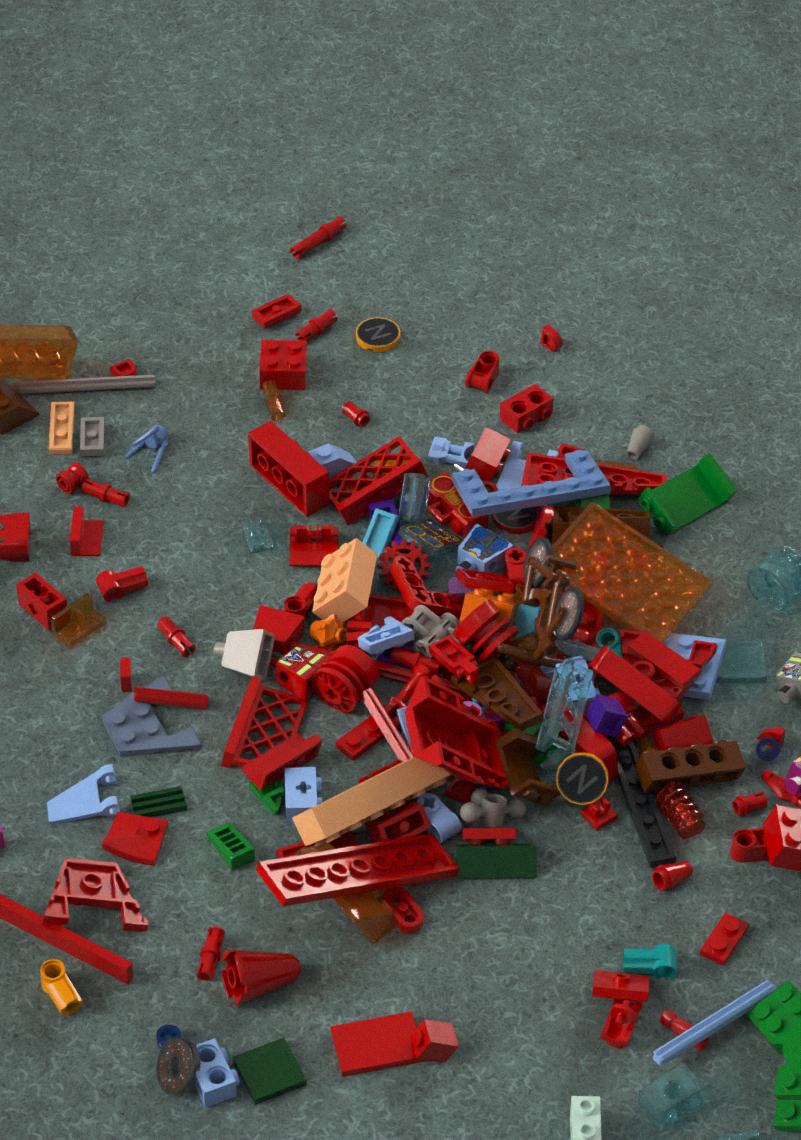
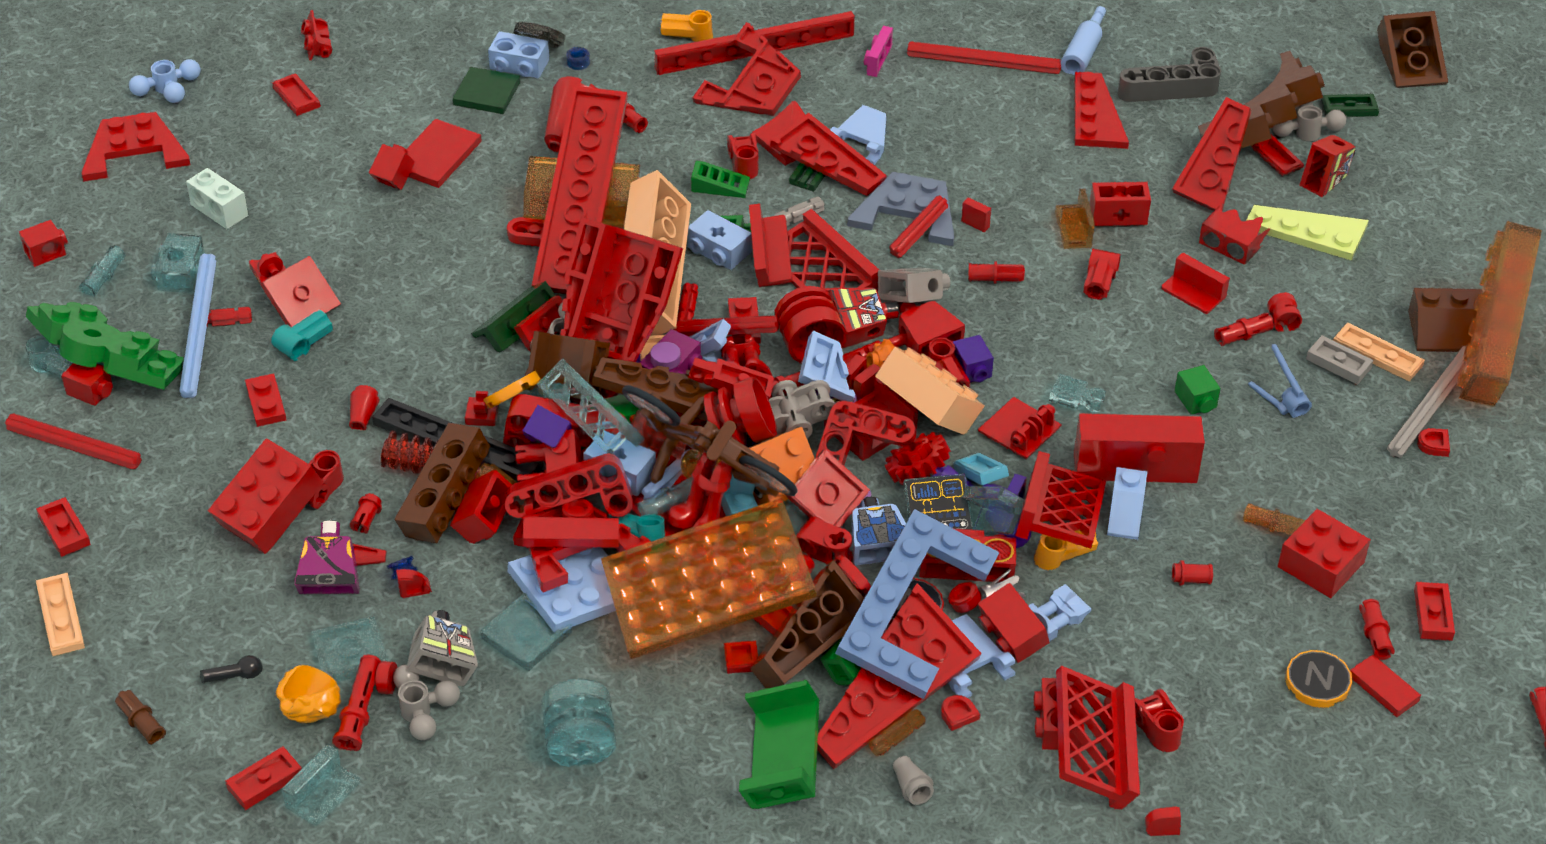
camera: 130 degrees right, 0 degrees up
(144, 790) = (827, 153): none -> red wing
(187, 844) = (744, 154): none -> red piece
(194, 481) = (1197, 390): none -> green brick
(218, 778) = (795, 213): none -> light grey axle
(277, 591) = (974, 358): none -> dark purple brick
(353, 309) = (1385, 685): none -> red tile
(528, 377) = (1118, 741): none -> red fence

